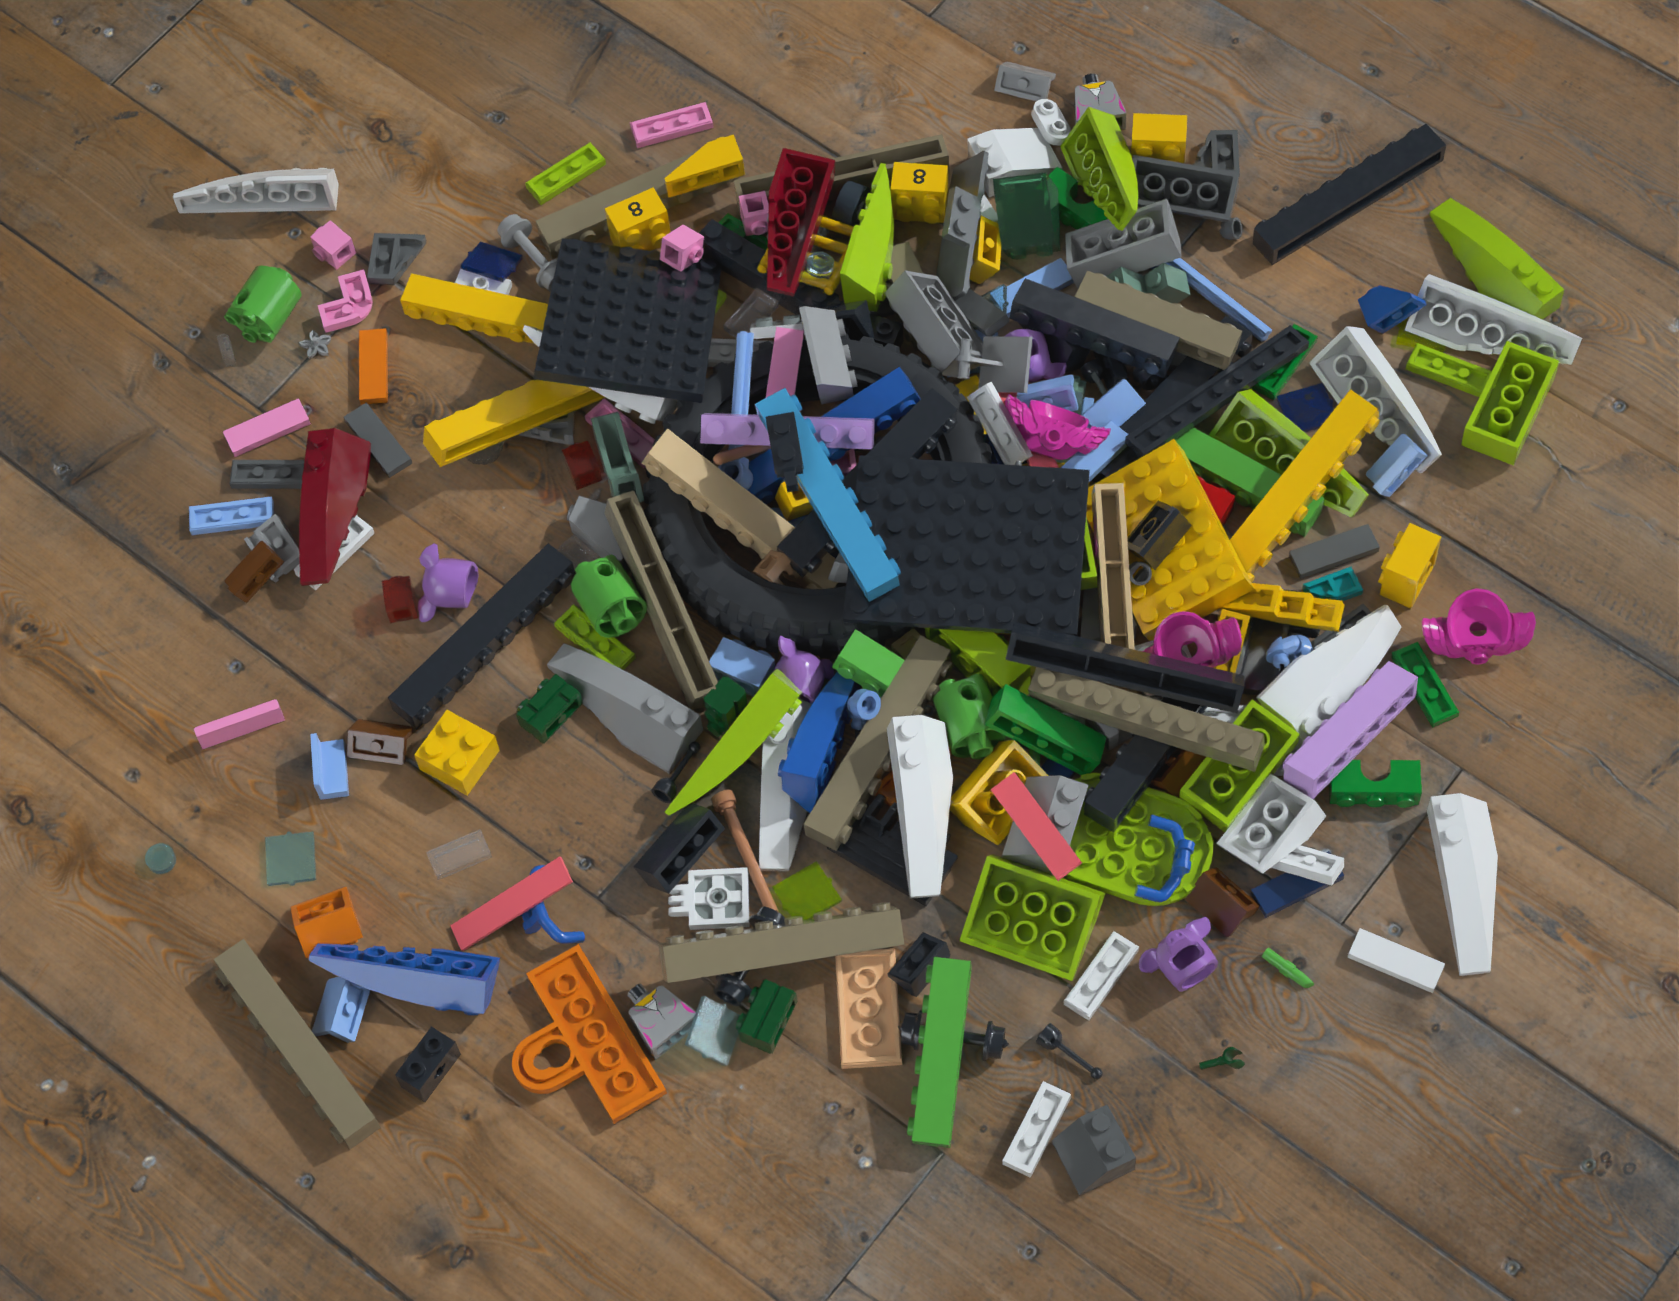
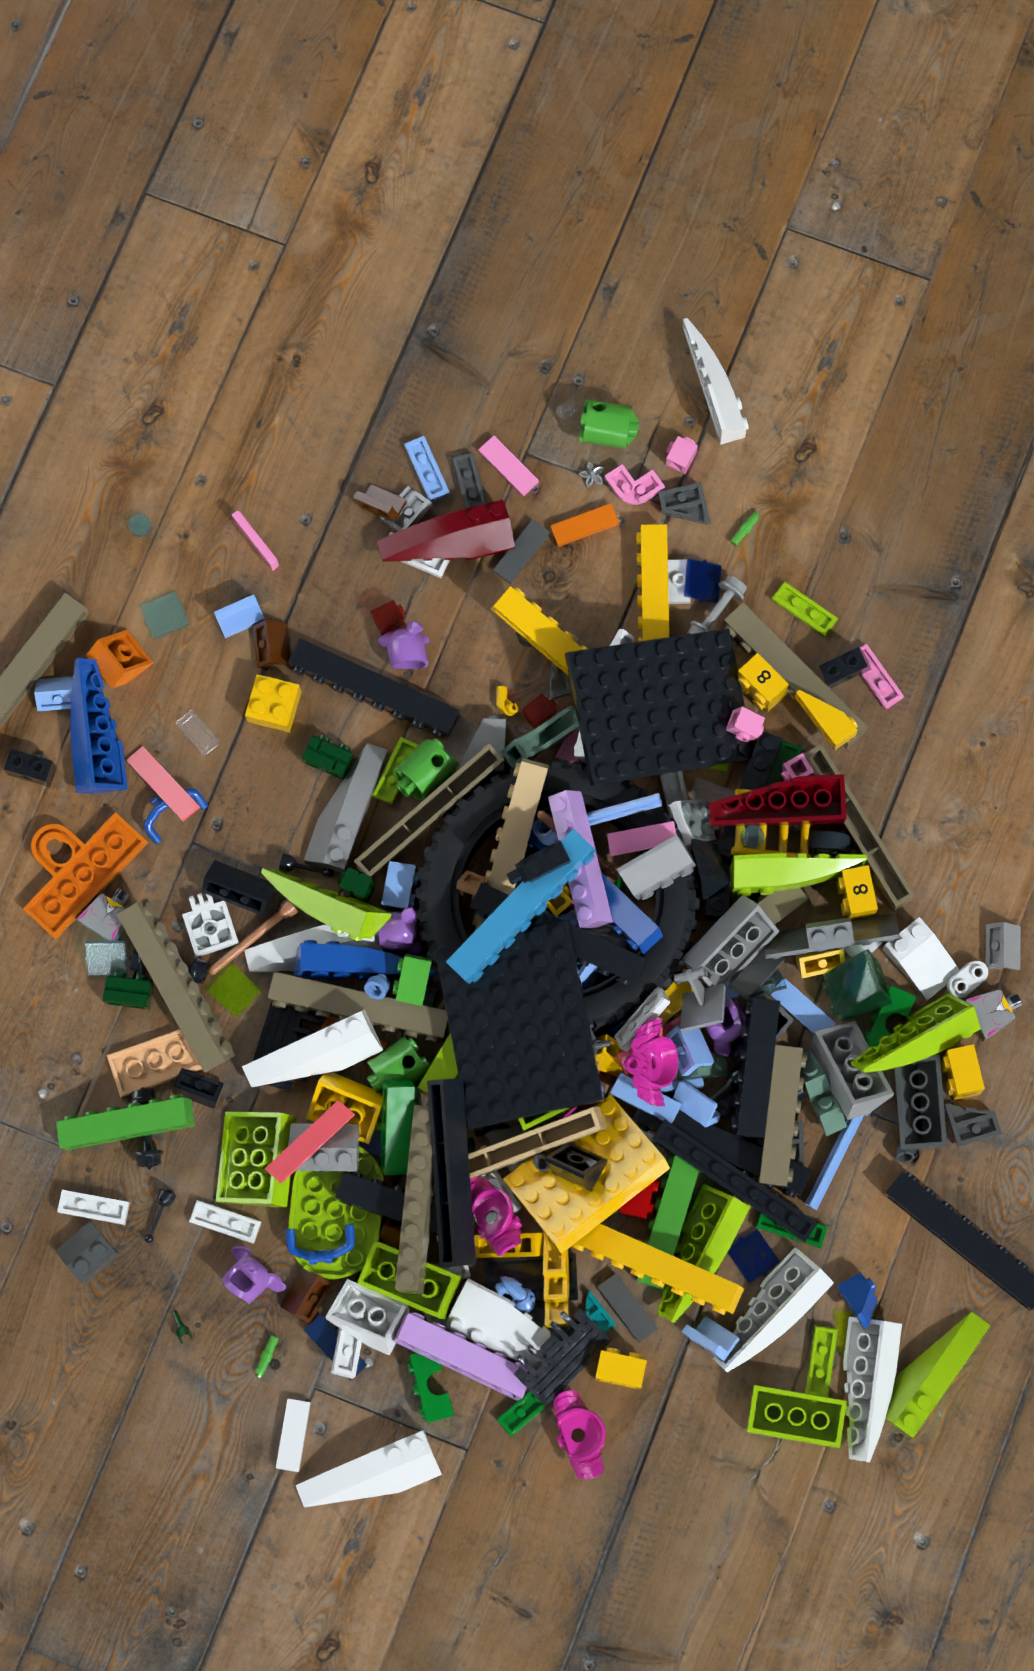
camera: 75 degrees right, 15 degrees up
(447, 208) = (744, 529): none -> bright green piece
(557, 503) = (503, 703): none -> yellow arm
(651, 140) = (845, 667): none -> black brick
(1379, 620) = (562, 1357): none -> black hinge

